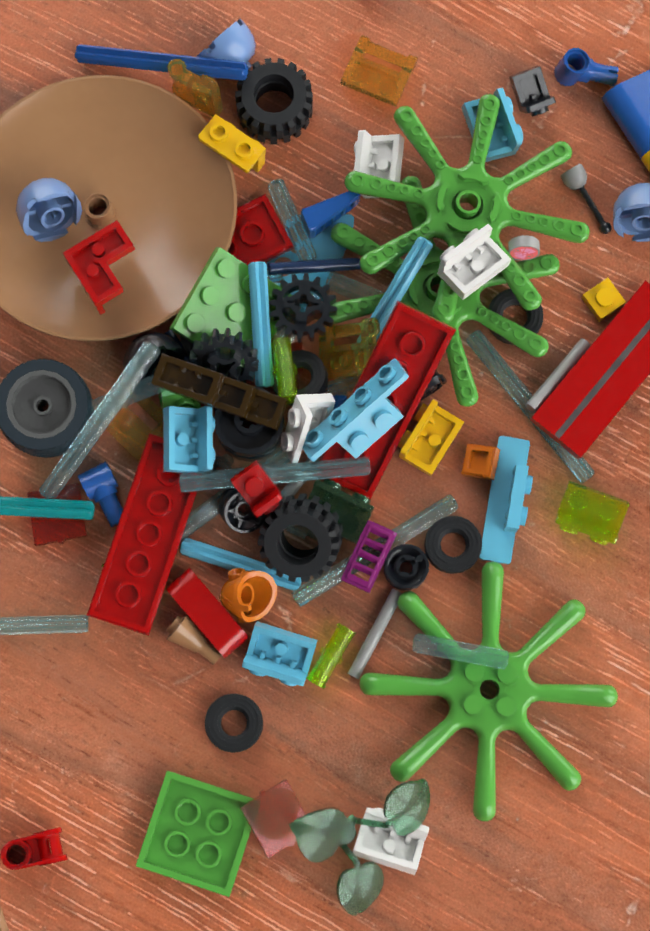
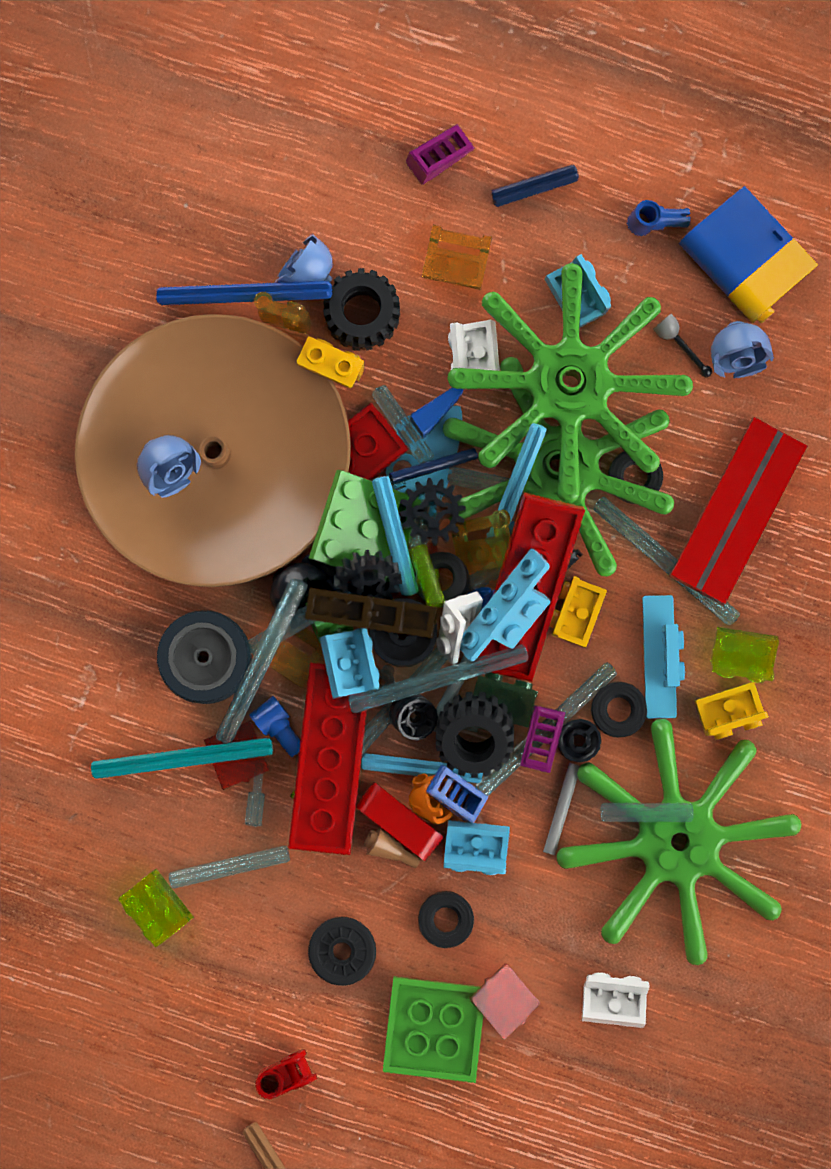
camera: 10 degrees left, 5 degrees up
(65, 566) = (255, 803): none -> clear light blue axle
(92, 259) = (222, 508): red panel -> none
(141, 740) = (342, 971): none -> black wheel
(257, 489) = (426, 698): red bracket -> none
(289, 605) = (474, 802): none -> blue slope
(327, 829) = (553, 1010): clear green plant -> none
(331, 655) = (524, 838): clear neon green pin -> none
(470, 17) = (534, 185): none -> dark blue axle
(472, 262) = (588, 439): white bracket -> none
(480, 461) = (630, 625): orange tile -> none
(524, 247) = (632, 411): tile -> none
(531, 91) = (610, 250): bracket -> none
(557, 375) = (687, 527): light grey bar -> none
(566, 566) = (730, 710): none -> yellow bracket
(603, 299) = (717, 442): yellow plate -> none

